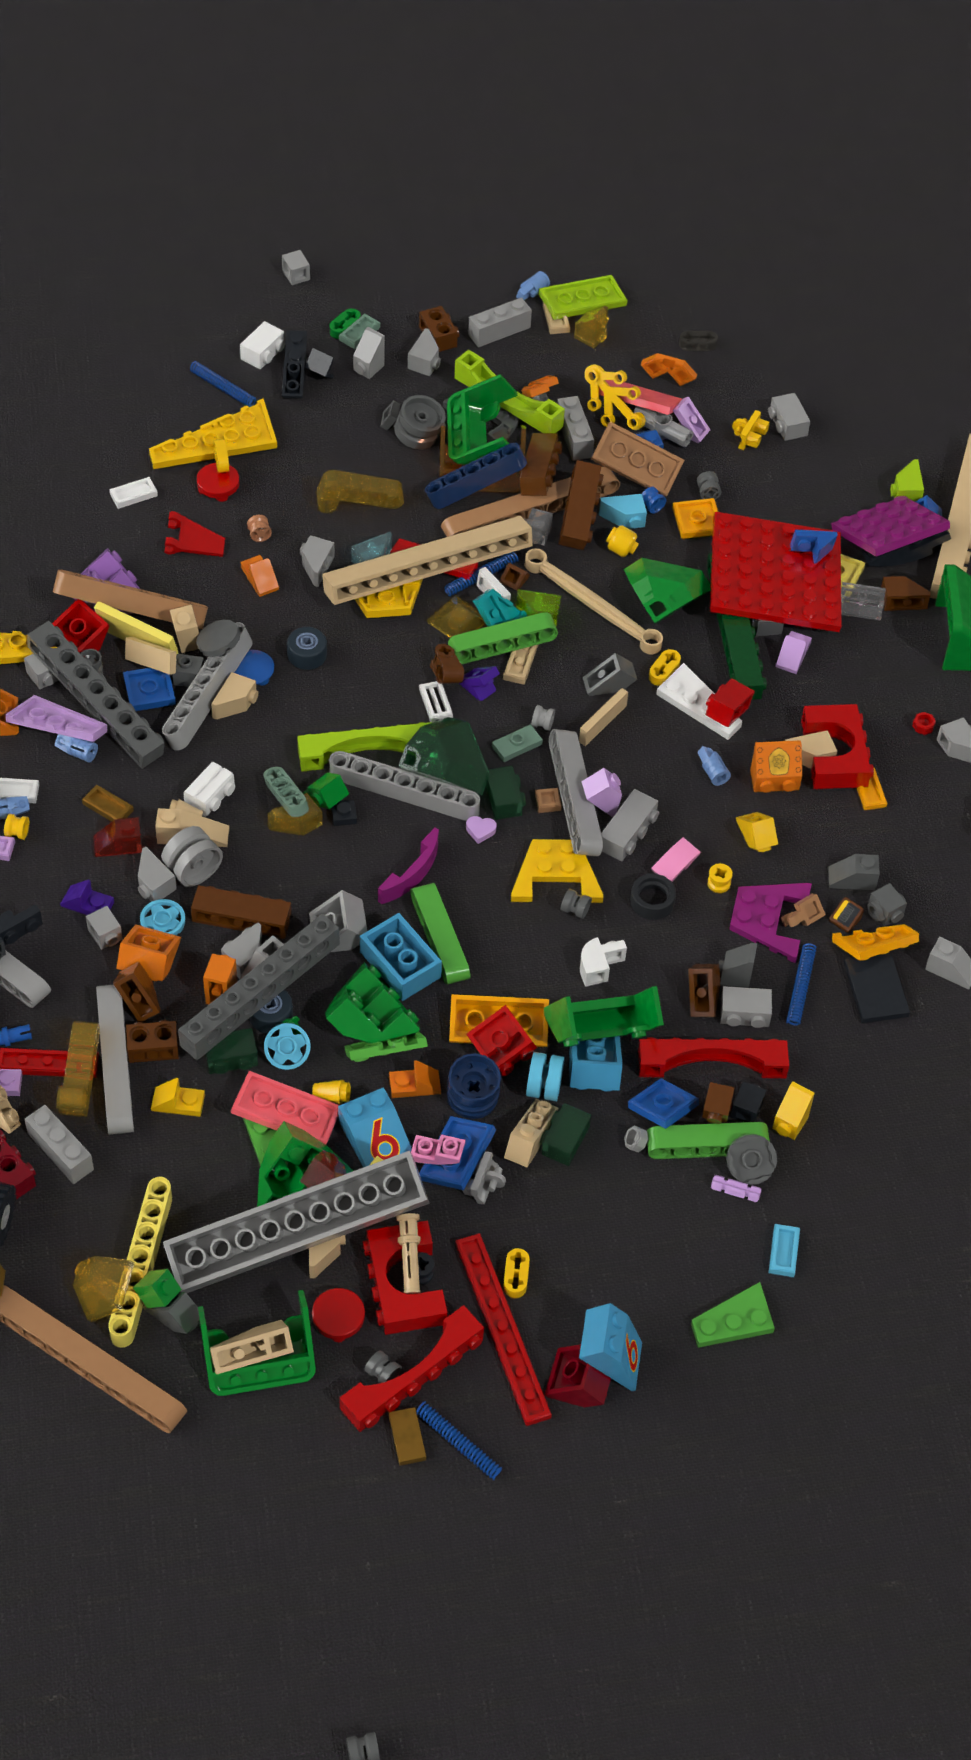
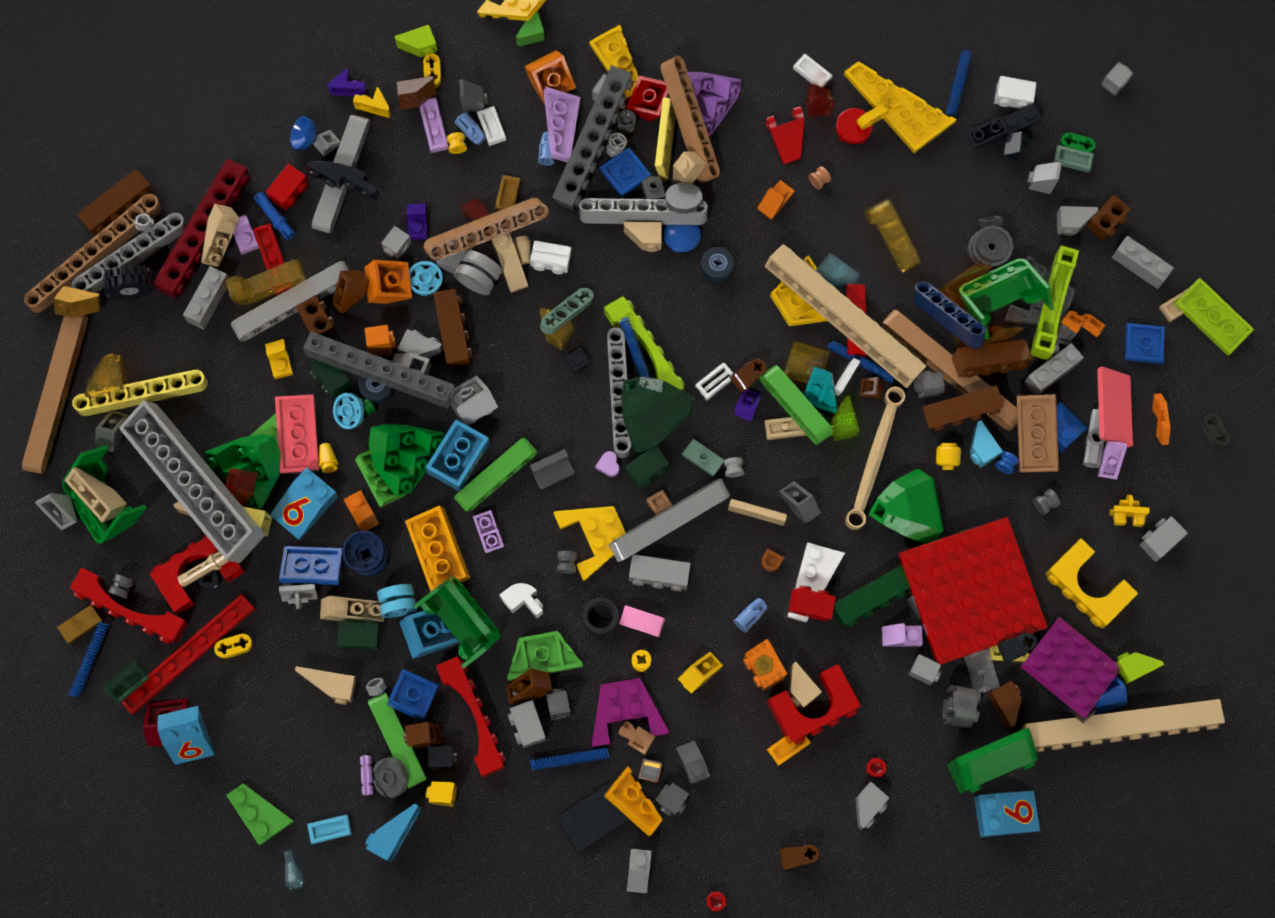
camera: 65 degrees right, 20 degrees up
(115, 678) = (616, 144): none -> light grey wheel
(147, 825) = (477, 228): none -> medium nougat beam
(150, 655) = (647, 160): tan tile -> none
(157, 1288) = (112, 413): green brick -> none
(173, 496) = (818, 101): none -> clear red slope
(250, 1403) = (58, 509): none -> light grey slope
(317, 557) = (811, 233): light grey slope -> none
(327, 790) = (585, 339): green brick -> none
(338, 1314) = (152, 539): red tile -> none
(365, 750) = (632, 342): none -> blue piece
(397, 886) = (570, 434): magenta slope -> none
(439, 1152) = (304, 550): bright pink slope -> none
(460, 881) = (552, 469): none -> dark grey panel
(502, 1040) = (413, 558): red plate -> none
(506, 968) = (488, 531): none -> lavender slope
(510, 1399) = (126, 681): none -> clear green brick
(532, 285) = (1202, 271): medium blue hinge -> none
(581, 353) = (1144, 343): none -> blue plate
(592, 327) = (1176, 338): clear yellow slope -> none
(603, 791) = (671, 539): lavender slope -> none
(611, 396) = (1097, 385): yellow plant -> none
(611, 1184) = (335, 685): none -> tan slope
(660, 665) = (835, 535): yellow beam -> none
(660, 728) = (771, 561): none -> dark orange tile
(669, 966) = (544, 653): none -> bright green wing
(695, 517) = (1007, 502): light orange plate -> none
(792, 501) = (1099, 610): none -> yellow arch
(817, 542) = (1014, 614): blue slope -> none
(823, 1176) = (389, 837): none -> dark azure slope
(824, 1304) = (293, 876): none -> clear light blue cone
(840, 642) = (925, 670): none -> light grey brick
(851, 559) = (1014, 648): none -> black piece
(892, 626) = (961, 706): none -> flat silver brick

